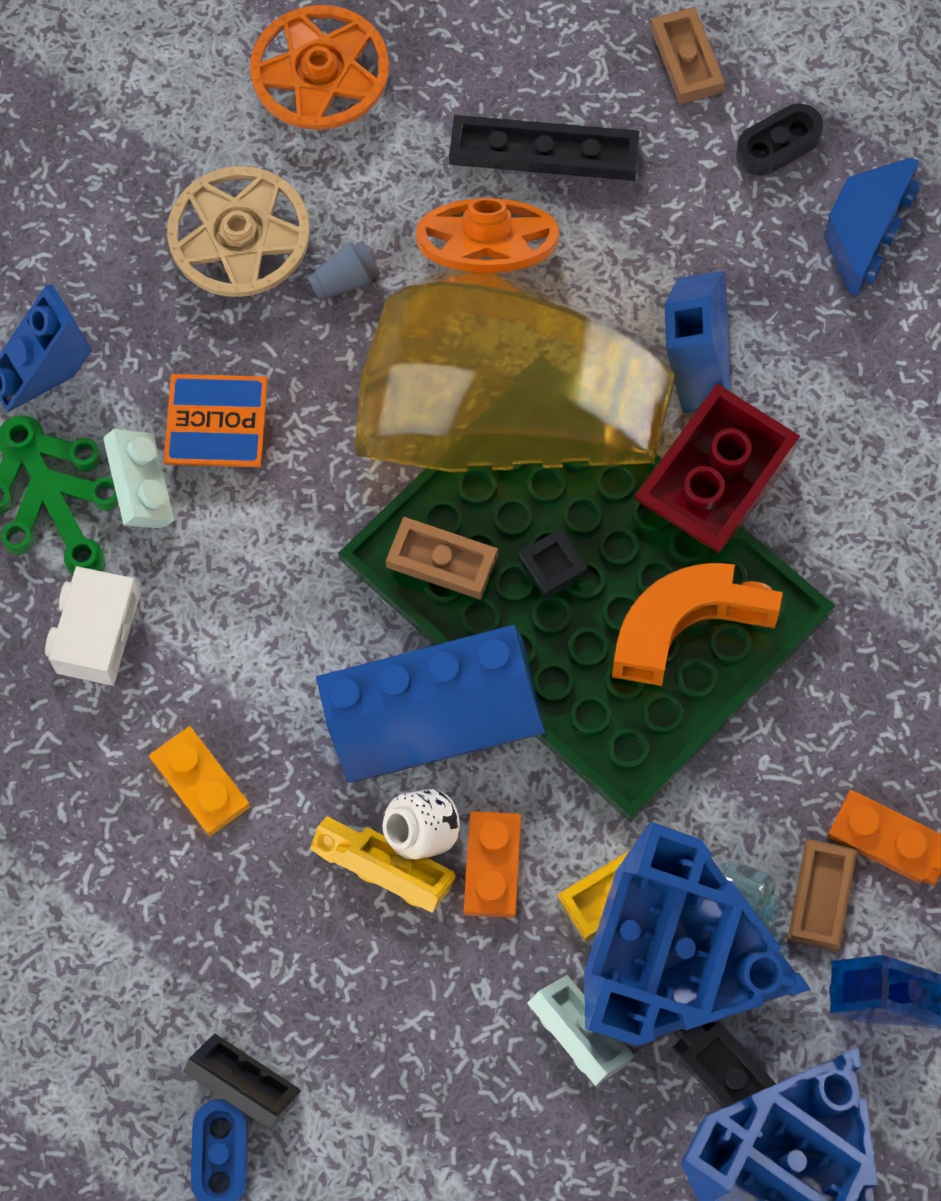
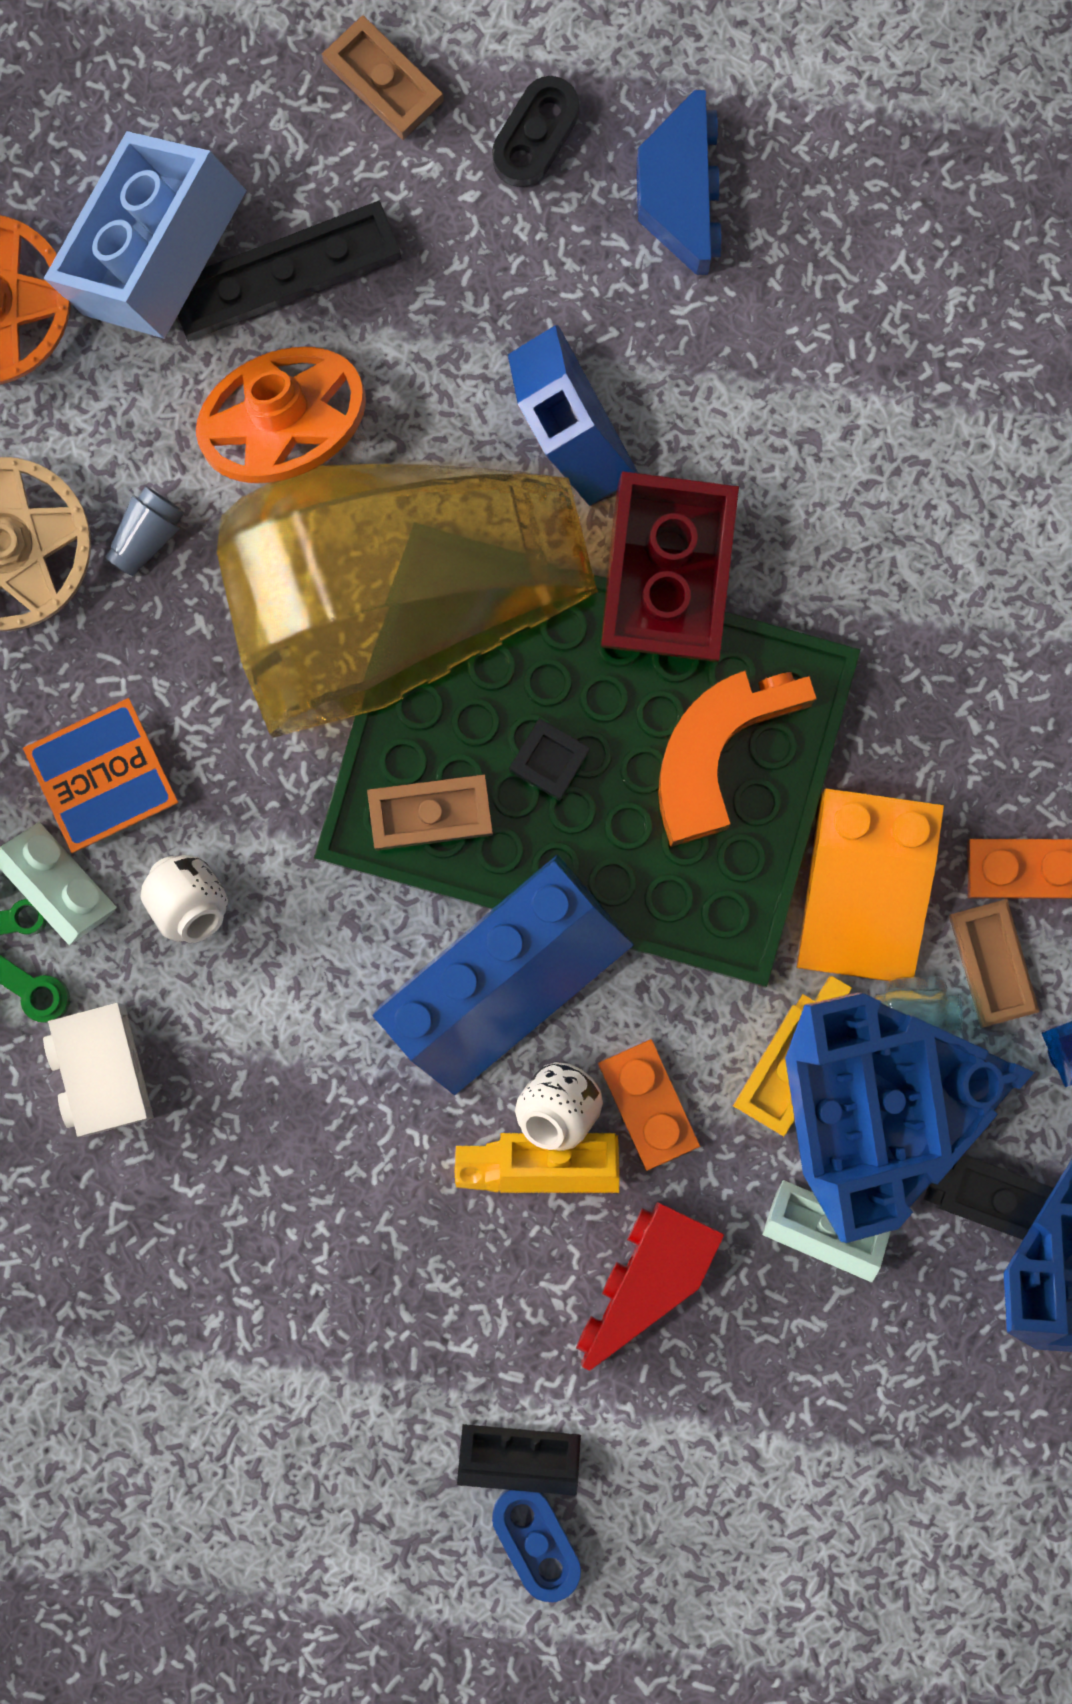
camera: 30 degrees left, 15 degrees up
(199, 781) = (302, 1174): light orange plate -> none
(226, 534) = (184, 898): none -> white head
(429, 995) = (662, 1272): none -> red slope
(458, 71) = (145, 234): none -> light blue brick
(752, 780) = (869, 885): none -> light orange slope

